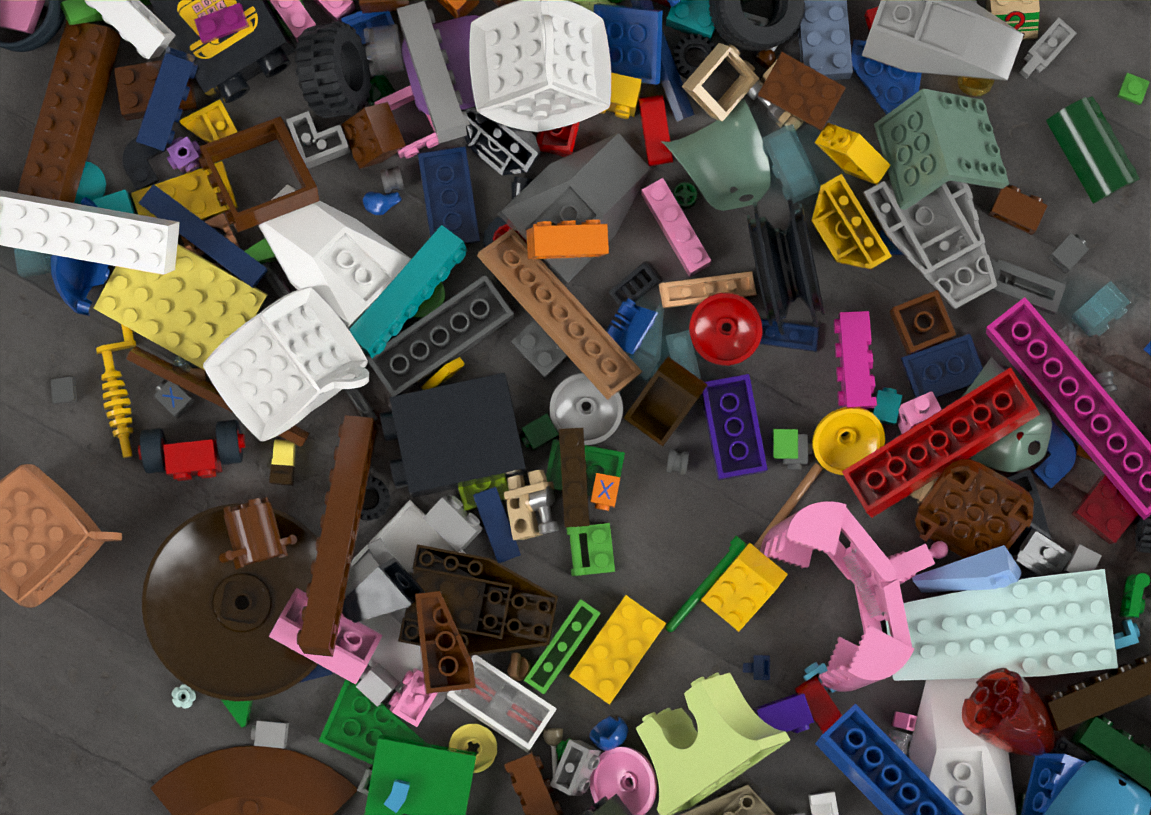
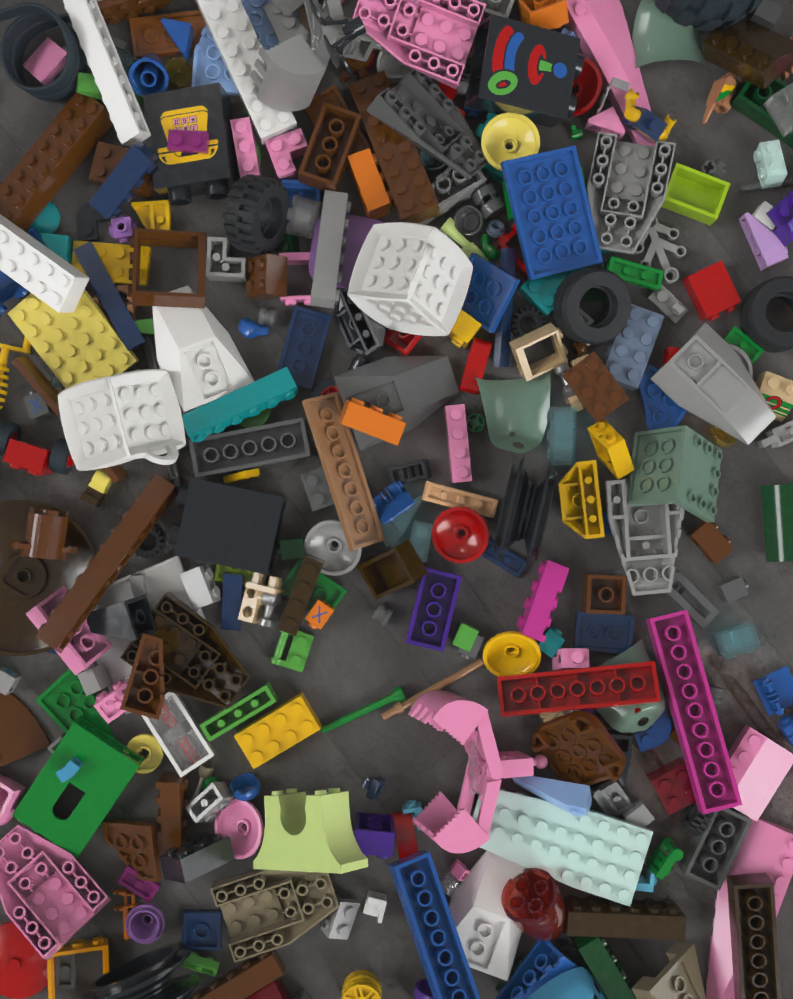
camera: 25 degrees right, 5 degrees up
(518, 667) = (202, 711): medium nougat plate -> none
(744, 587) = (388, 729): yellow brick -> none

